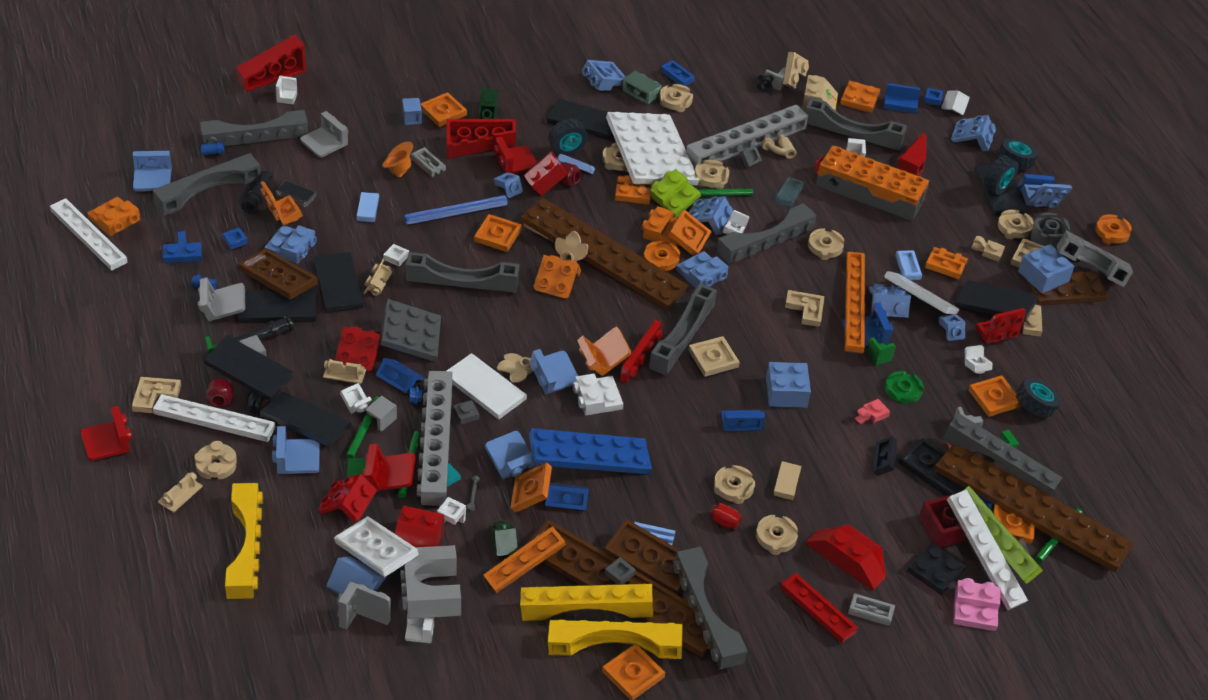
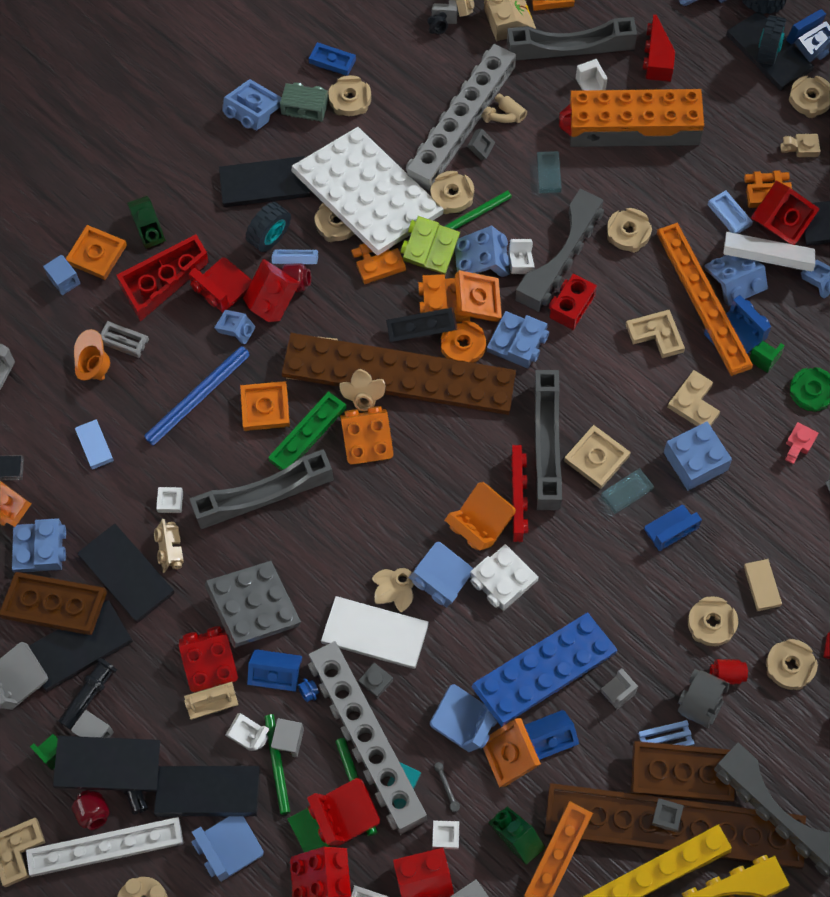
camera: 20 degrees left, 20 degrees up
(522, 256) = (307, 431): none -> green plate
(638, 231) = (421, 324): none -> black plate
(638, 493) = (619, 689): none -> light grey panel
(694, 518) = (703, 698): none -> dark grey brick
(723, 385) = (627, 491): none -> clear light blue tile
(756, 264) = (575, 302): none -> red brick
(809, 354) = (689, 400): none -> tan plate
(948, 276) = (785, 213): none -> red slope

